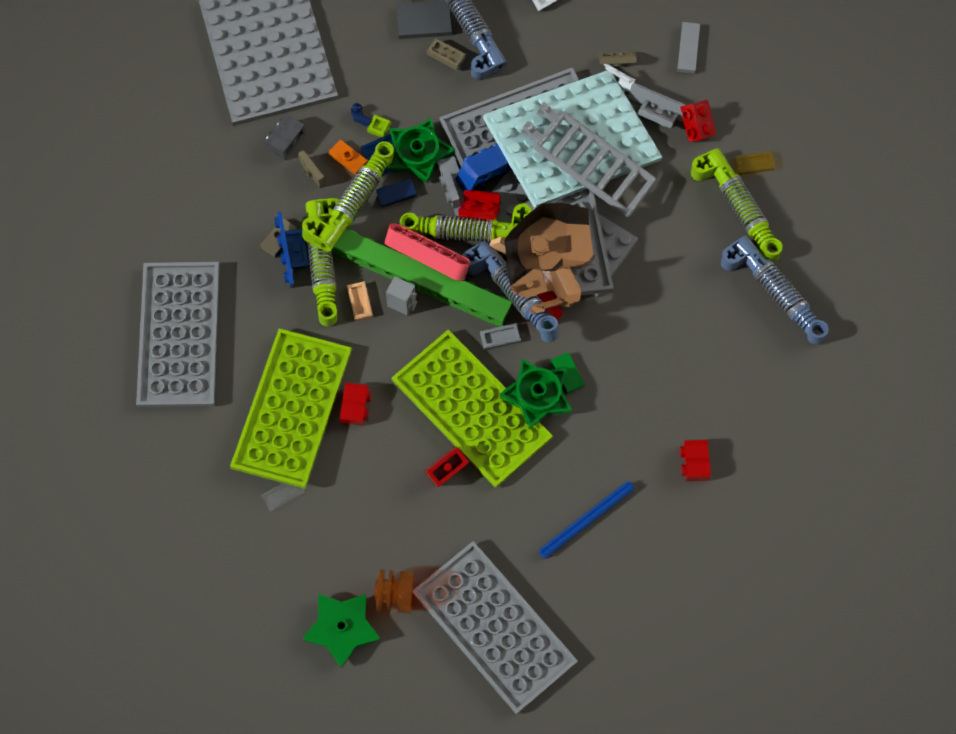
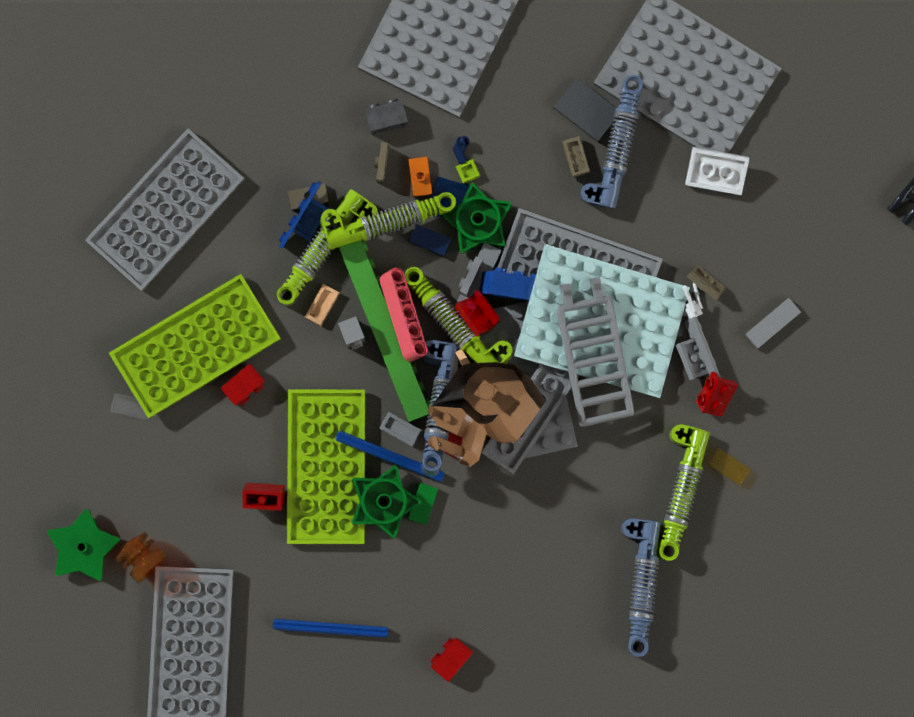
camera: 40 degrees right, 15 degrees up
(510, 358) = (385, 454): none -> blue axle

